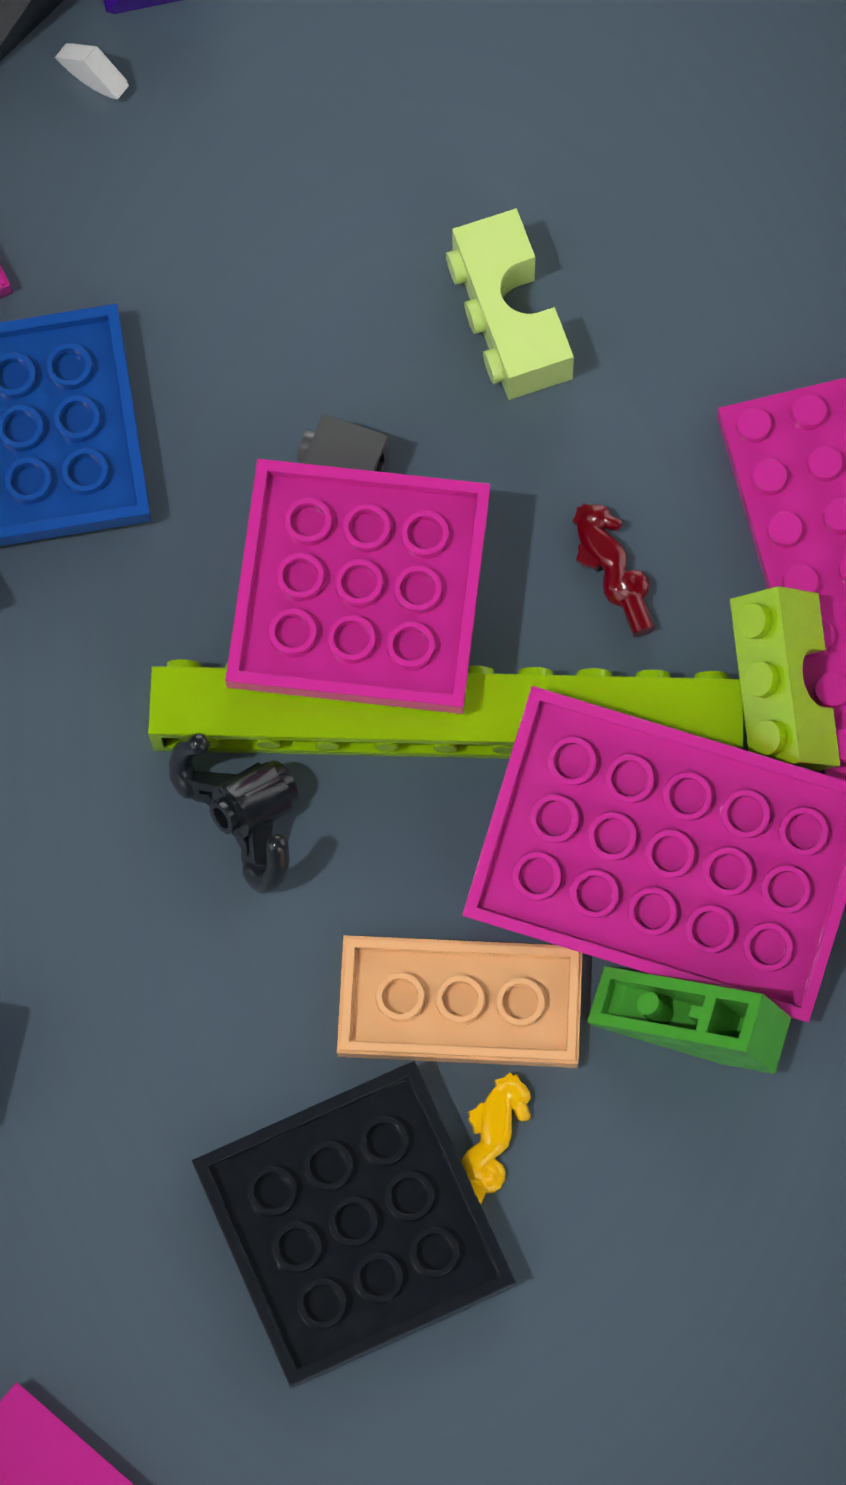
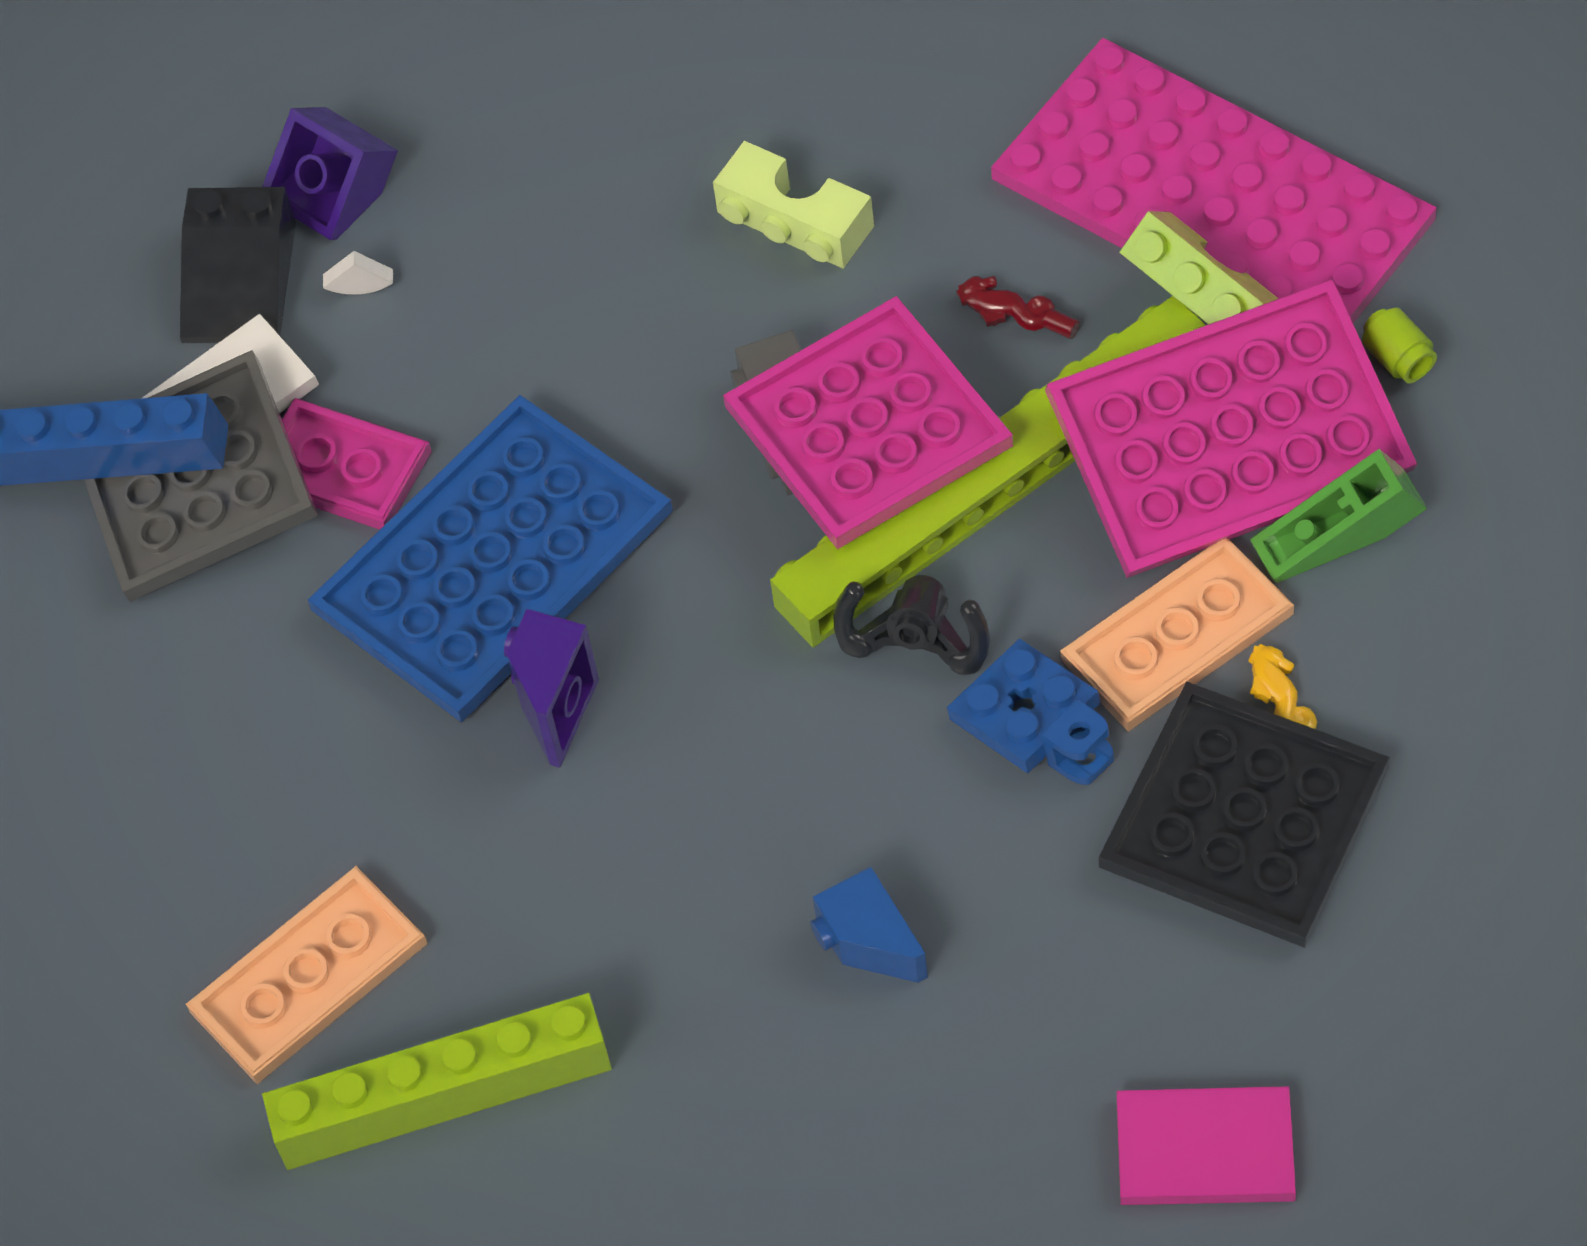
camera: 35 degrees left, 15 degrees down
(273, 1002) = (1057, 727): none -> blue plate

